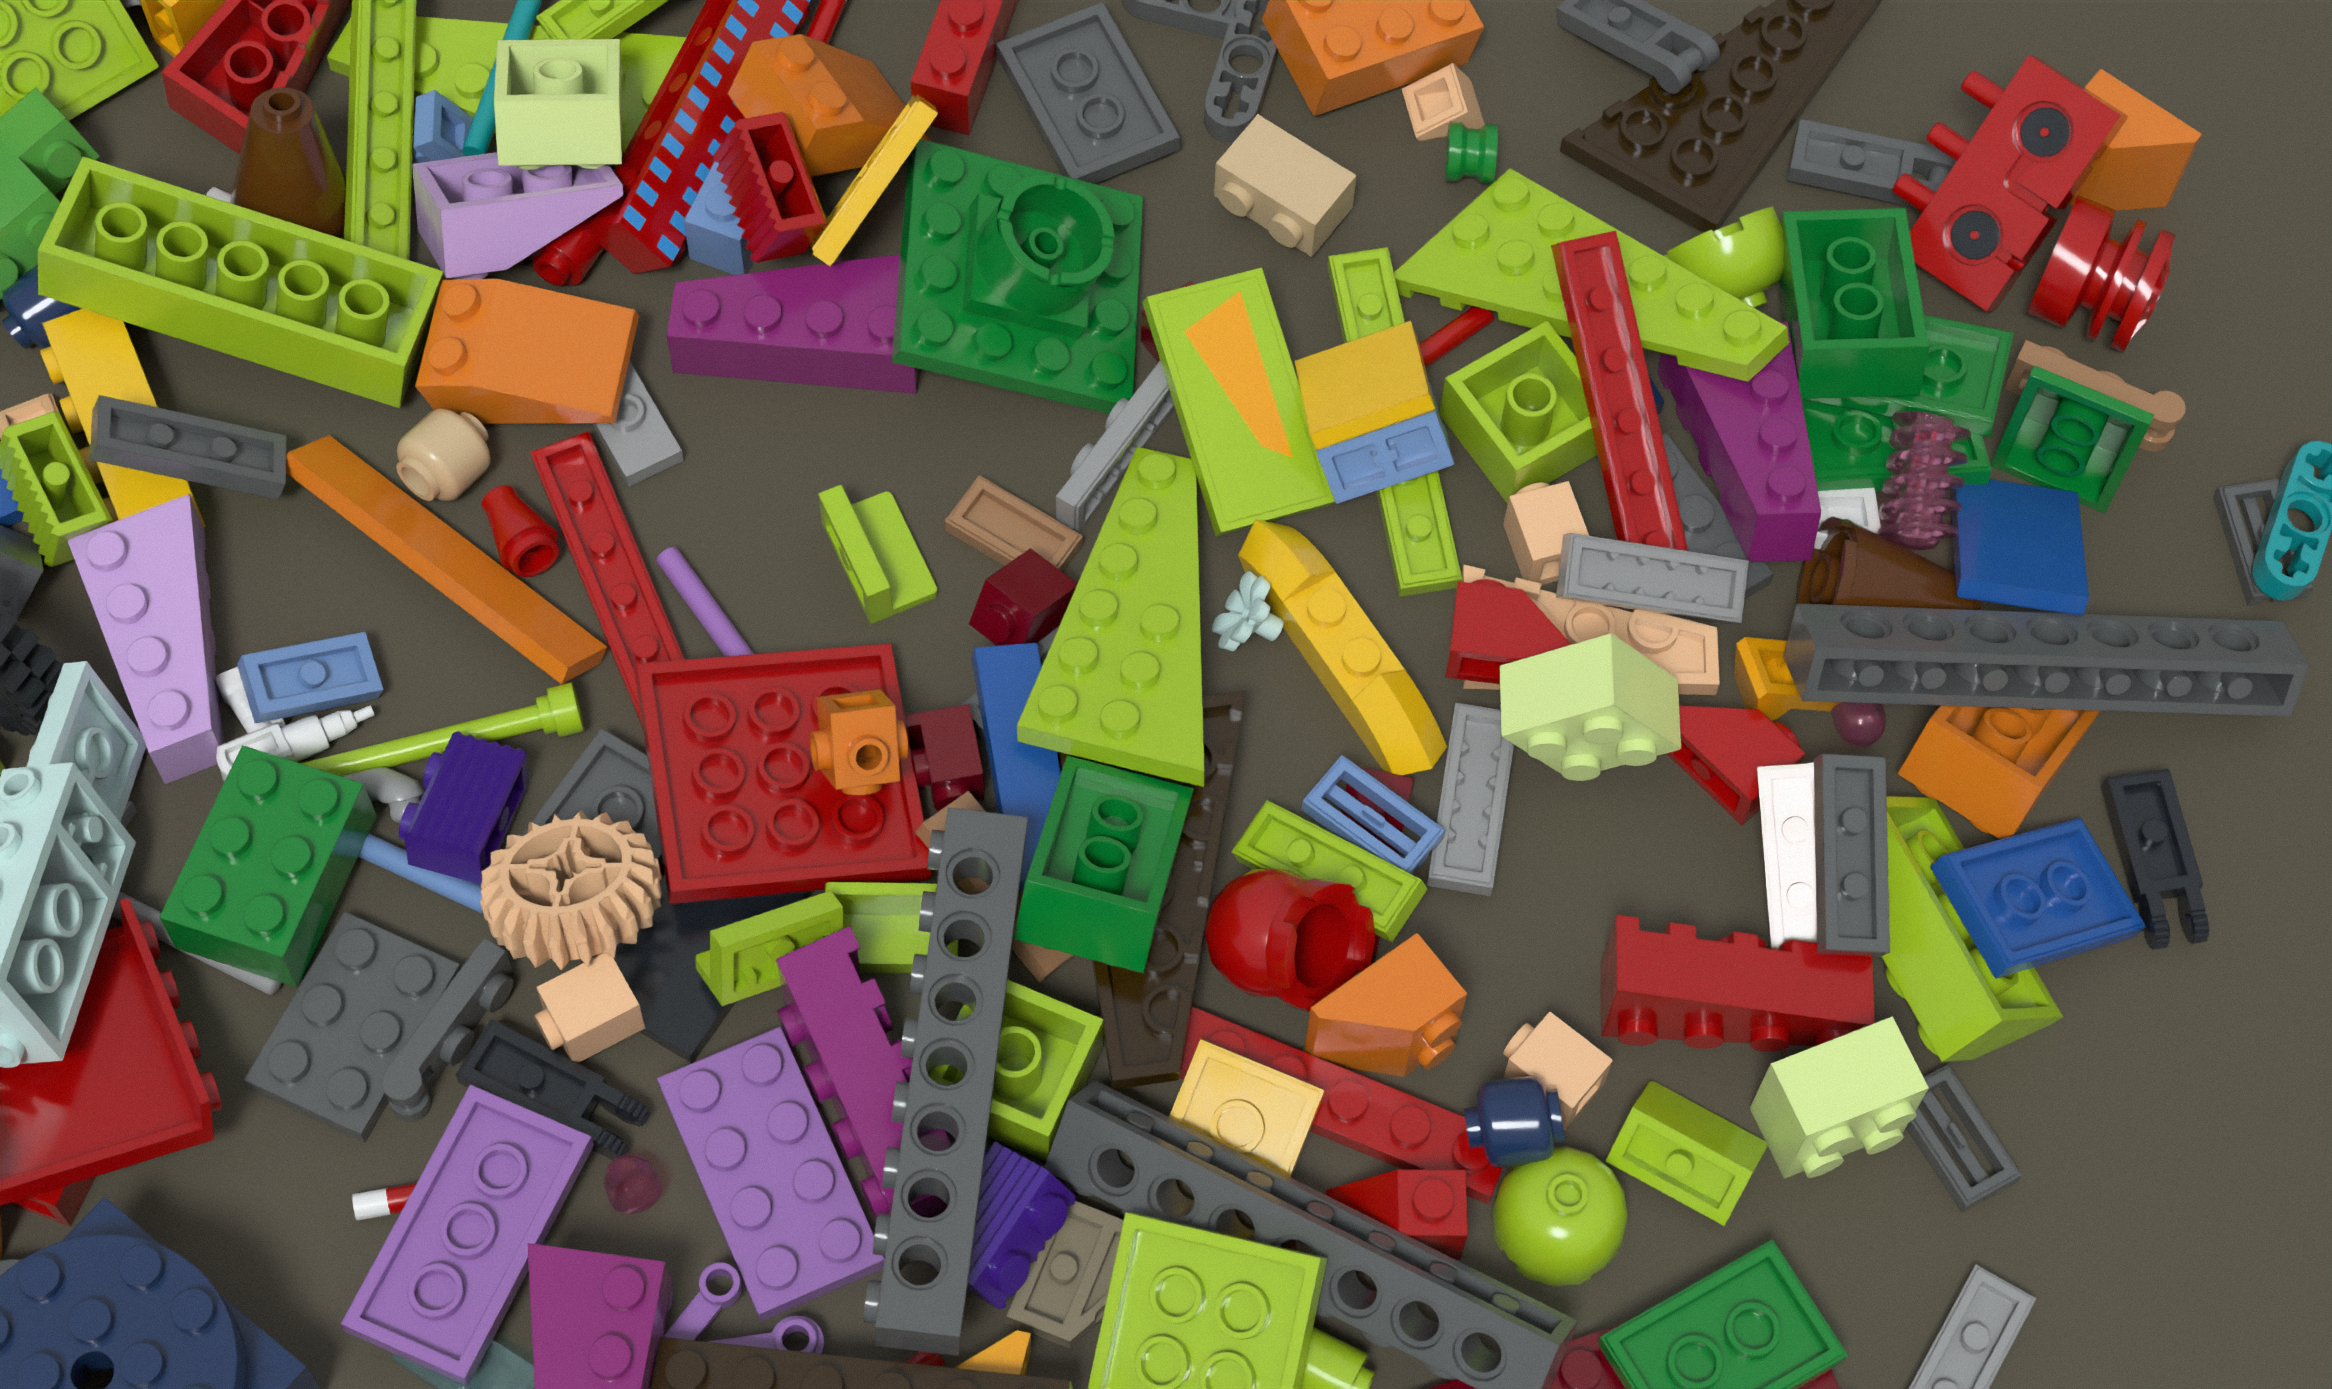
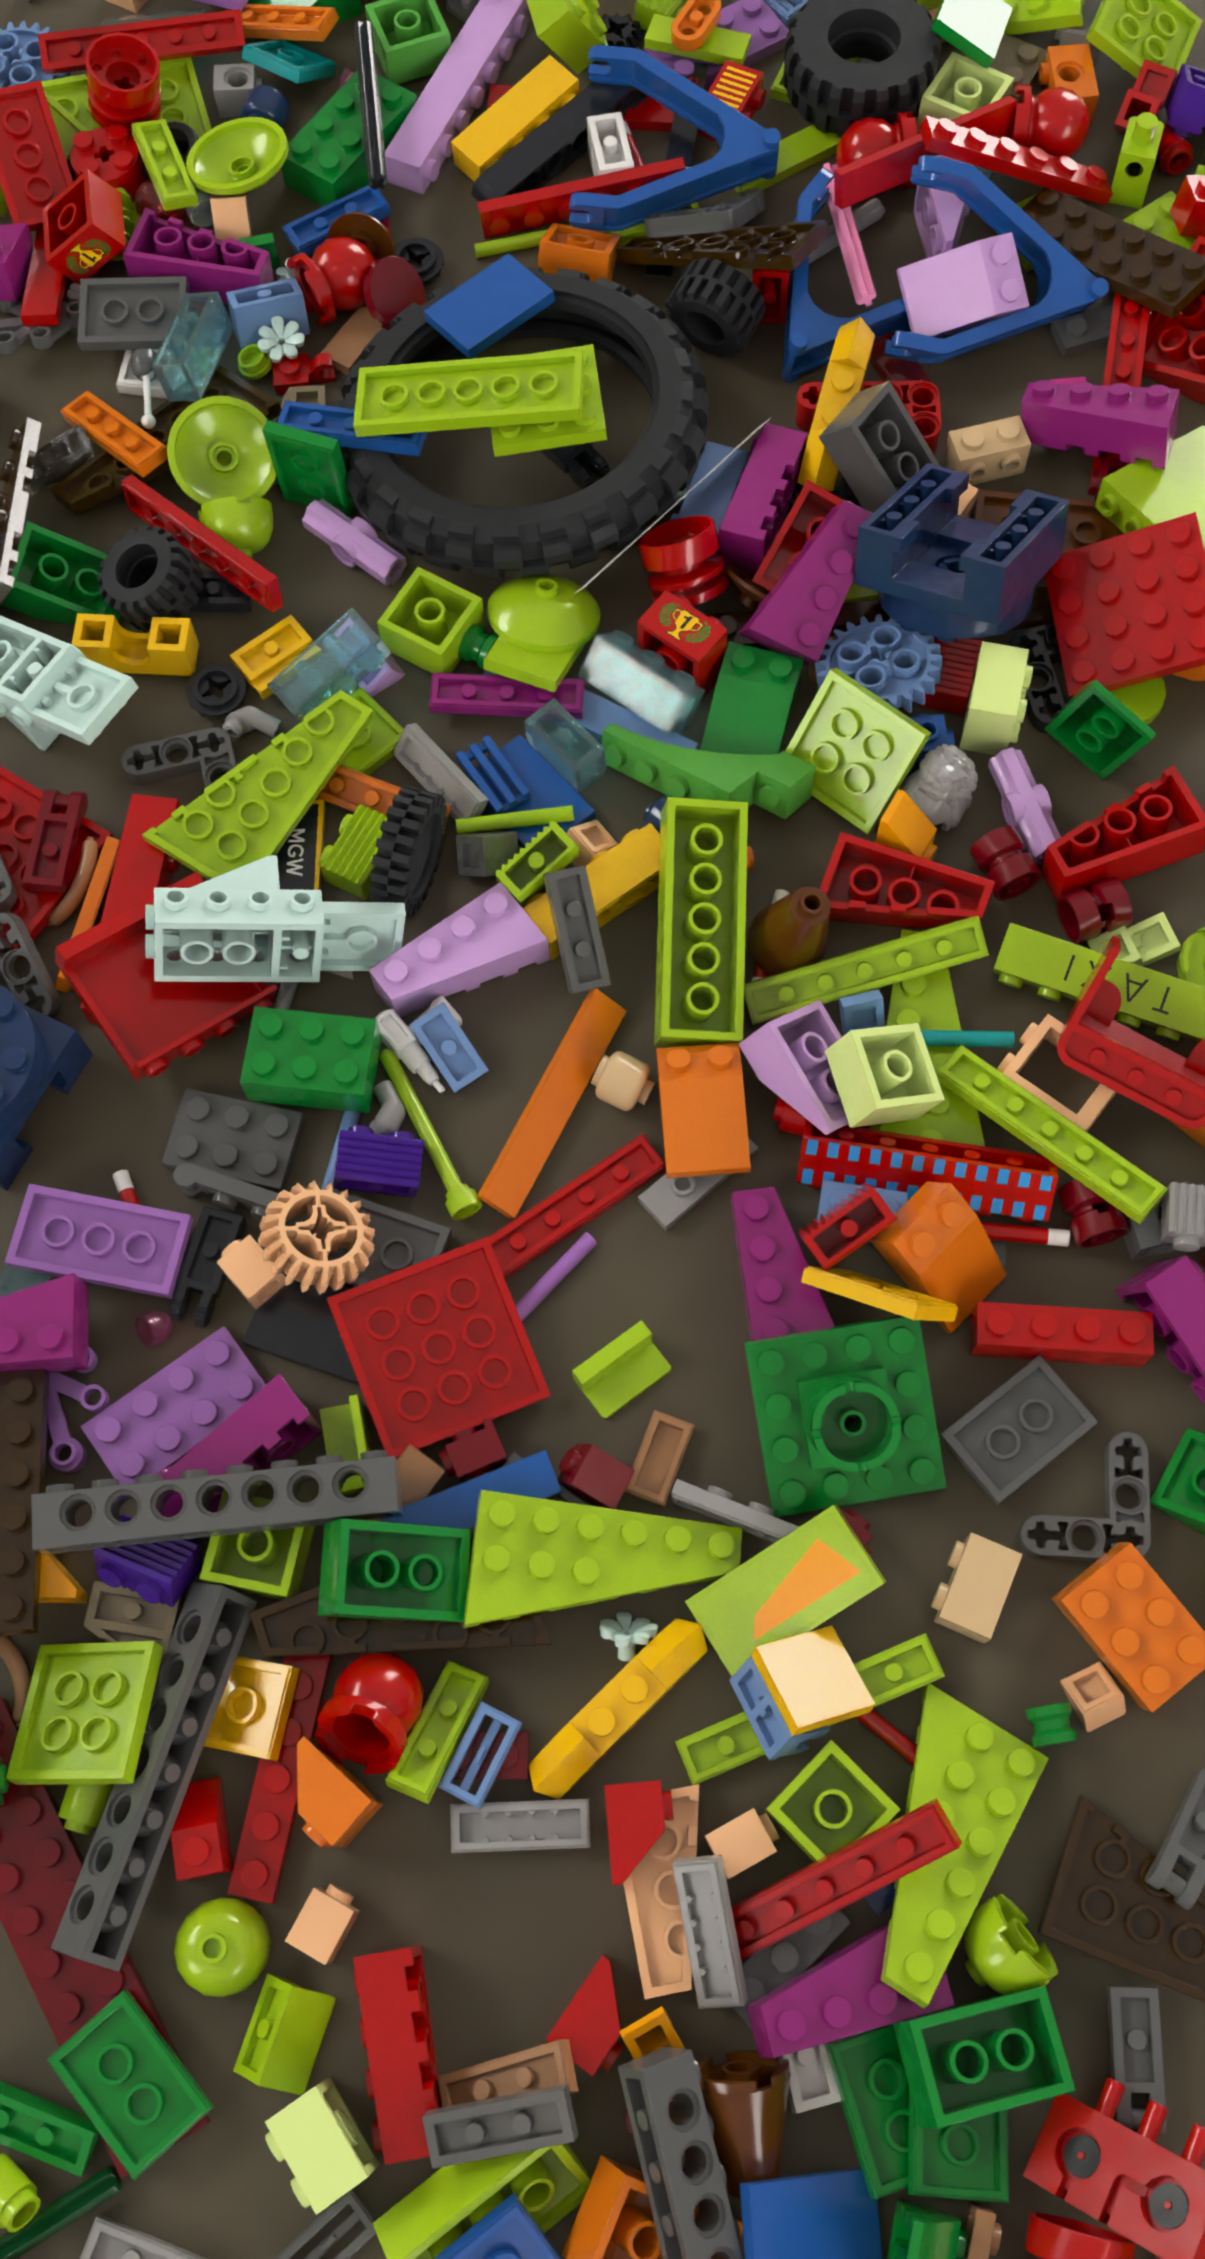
camera: 85 degrees right, 5 degrees up
(520, 534) = (581, 1142): red cone -> none
(746, 951) = (305, 1371): lime bracket -> none
(858, 741) = (444, 1393): orange brick -> none
(1515, 1121) = (266, 1901): dark blue head -> none
(1590, 707) = (581, 1901): yellowish green brick -> none
(1921, 480) = (838, 2143): clear pink piece -> none

